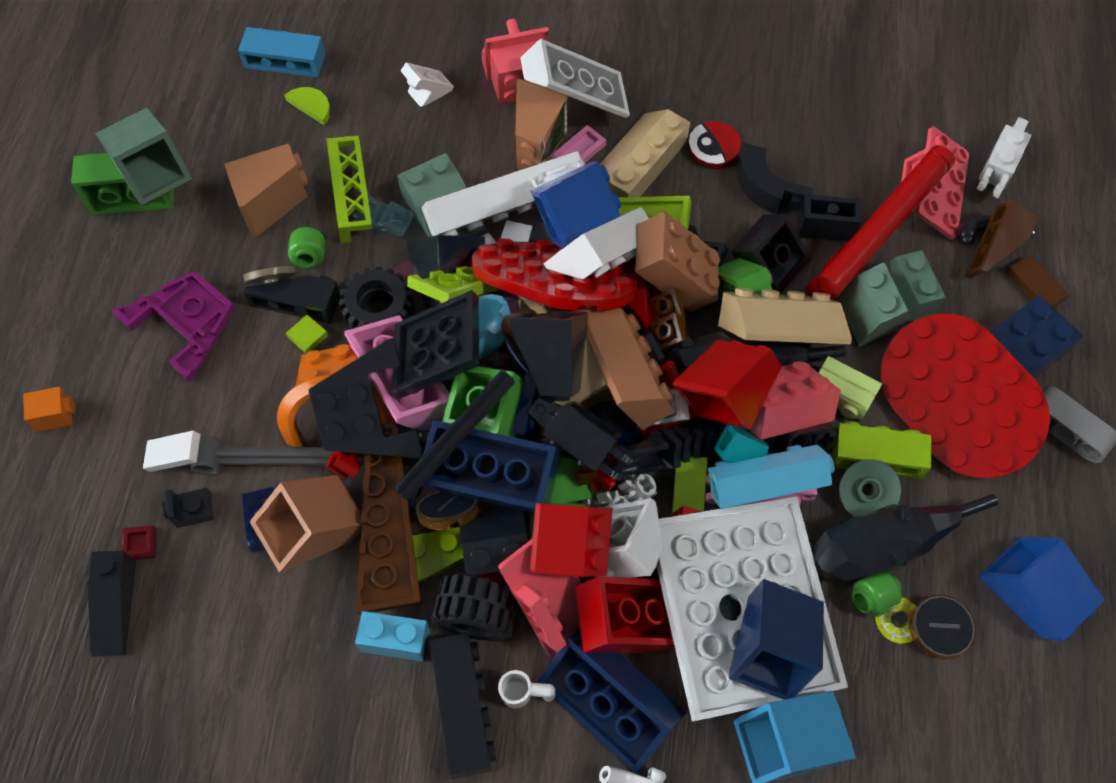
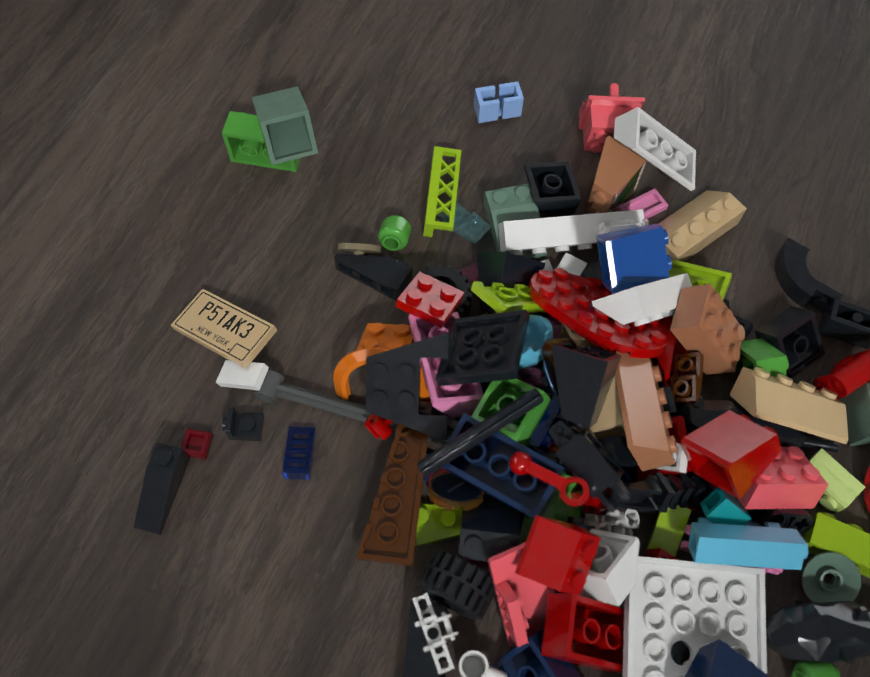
camera: 15 degrees right, 0 degrees up
(48, 409) = (155, 312): orange brick -> none
(135, 405) = (224, 328): none -> tan tile
(191, 309) = (288, 259): magenta wing -> none
(267, 186) = (376, 173): nougat slope -> none
(282, 52) = (416, 65): dark azure brick -> none
(306, 520) = (336, 466): nougat slope -> none
(307, 334) = (376, 305): lime tile -> none
(311, 102) = (429, 112): lime tile -> none
(364, 309) = (430, 299): none -> plate
(380, 81) = (507, 105): none -> light blue piece
(392, 636) = (381, 587): medium azure brick -> none
(425, 83) = (527, 120): white slope -> none
(472, 669) = (440, 640): none -> white piece
(473, 151) = (553, 188): none -> black slope
(509, 455) = (522, 464): none -> red piece
(714, 144) = (762, 232): tile -> none

